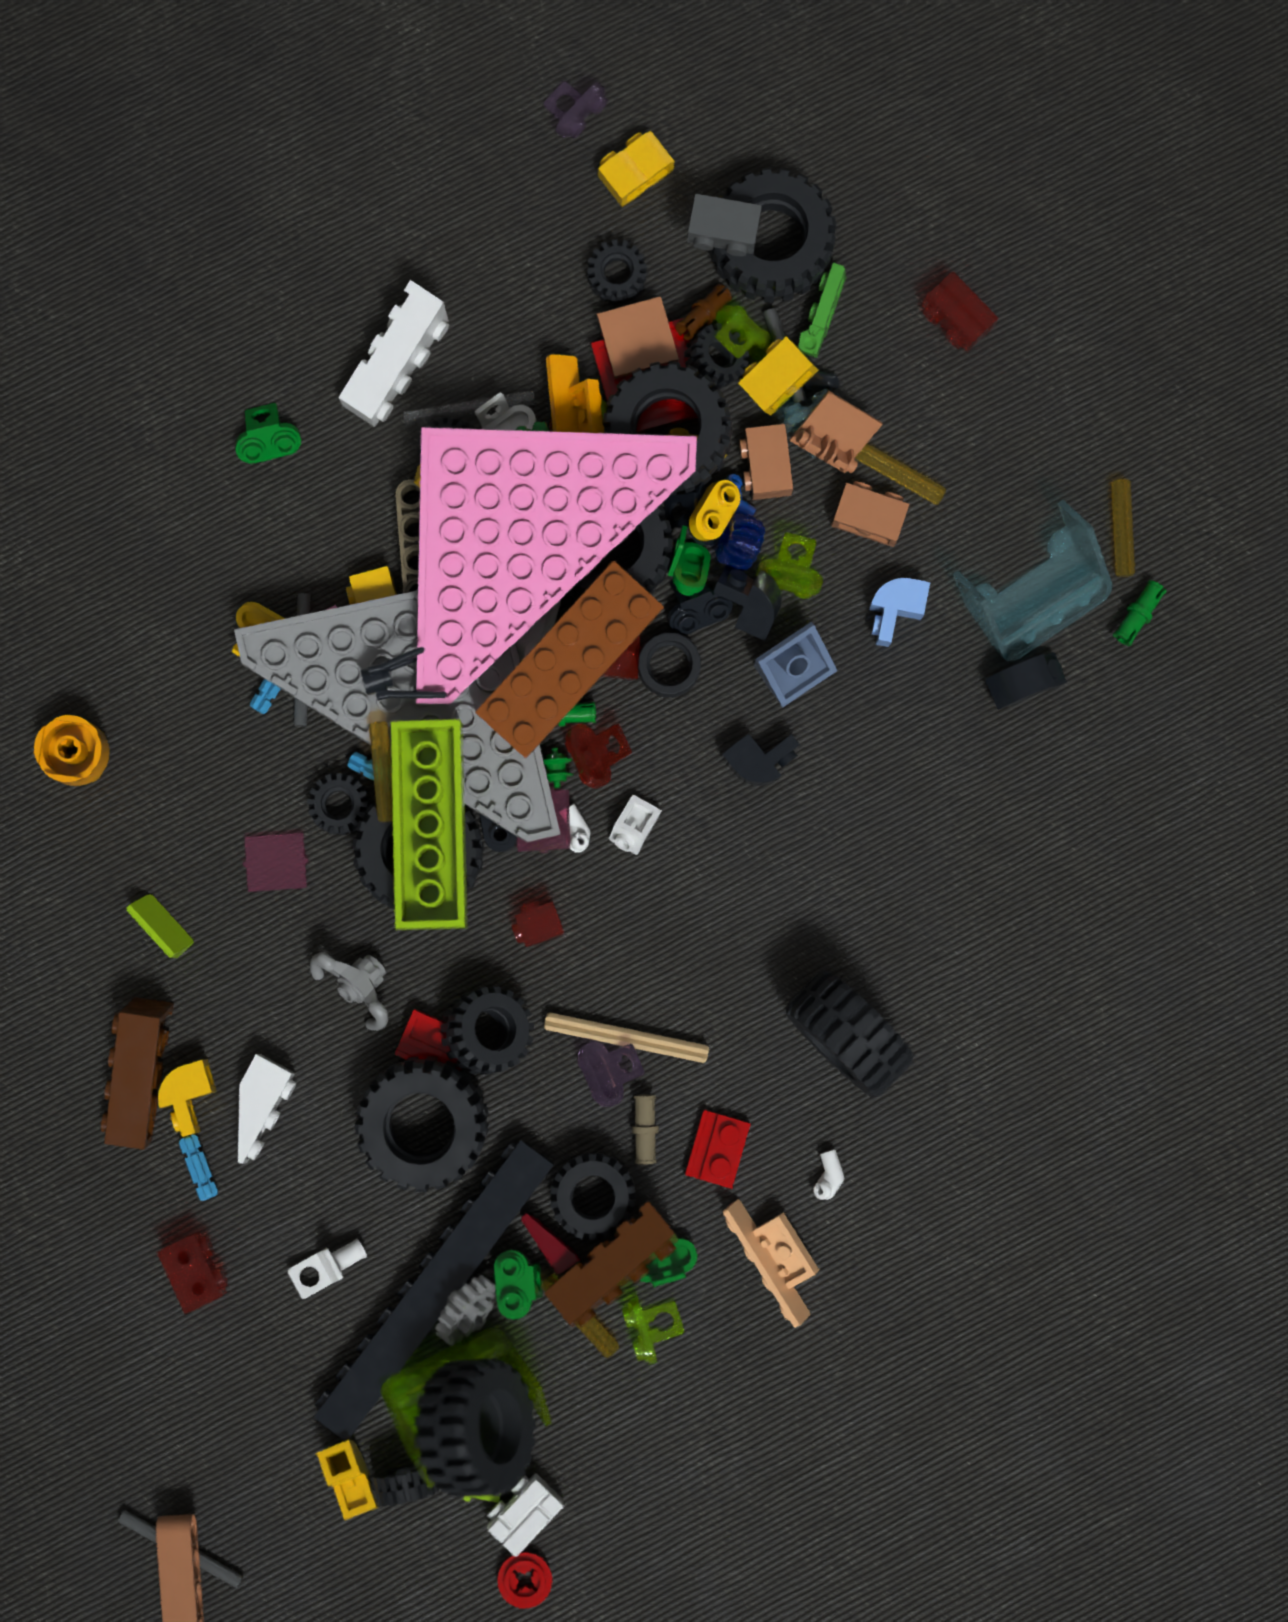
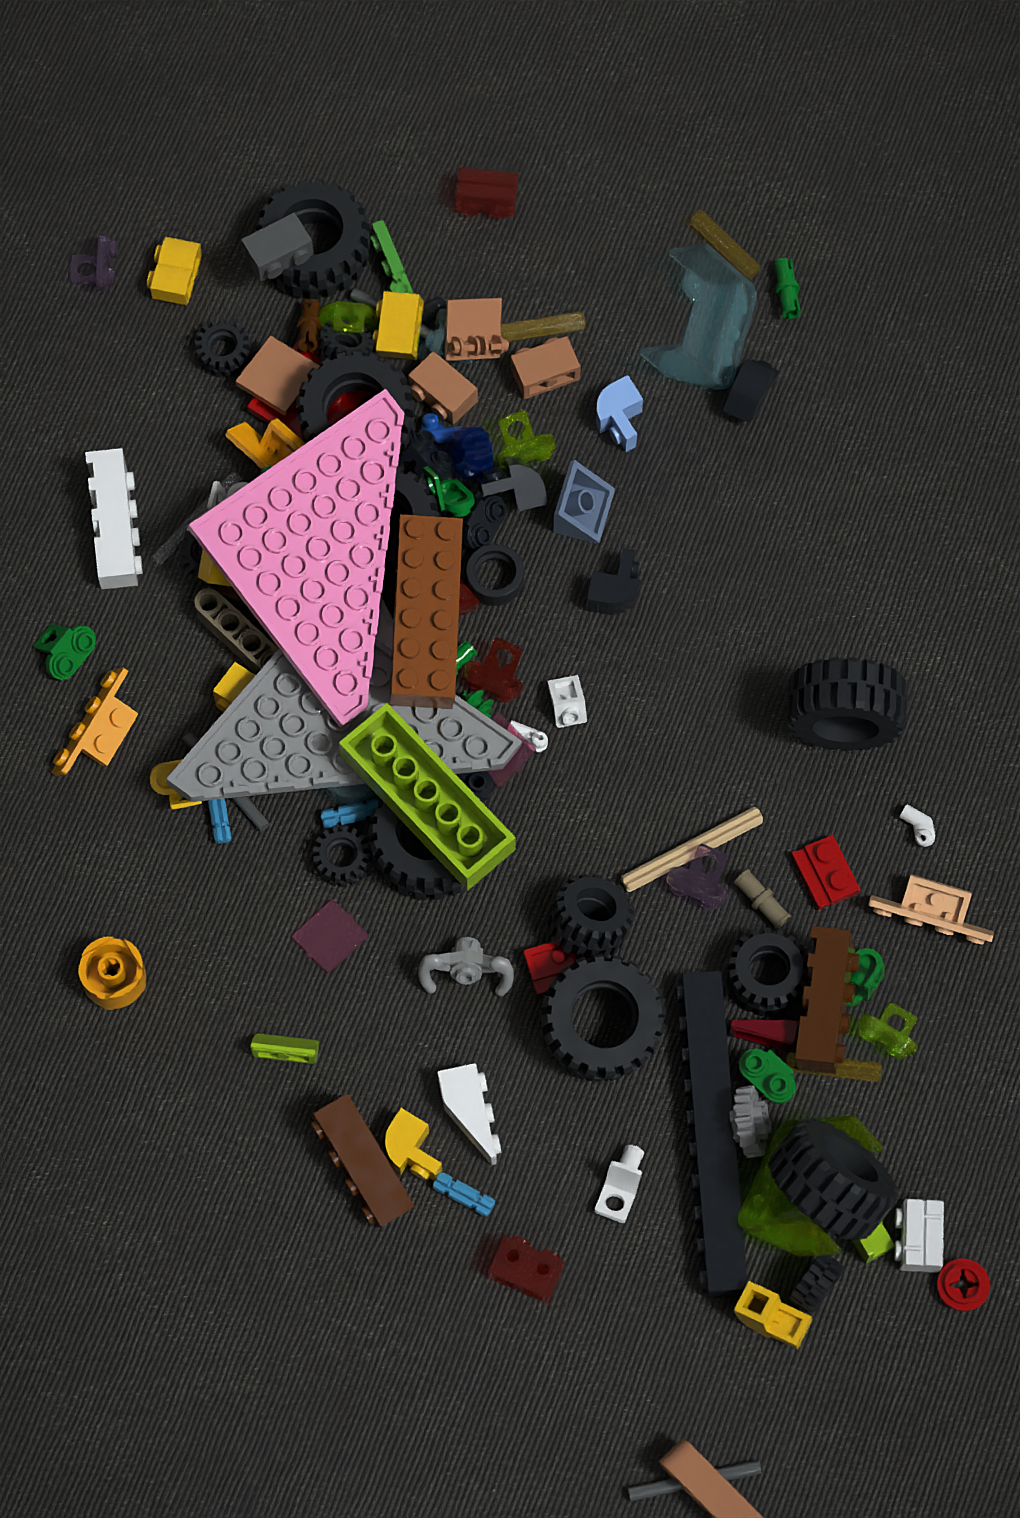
camera: 40 degrees left, 15 degrees down
(239, 530) = (101, 728): none -> light orange bracket
(379, 678) = (301, 726): black plant -> none
(382, 770) = (359, 791): clear yellow axle -> none
(537, 924) = (560, 821): clear red brick -> none
(716, 508) = (435, 443): yellow plate -> none

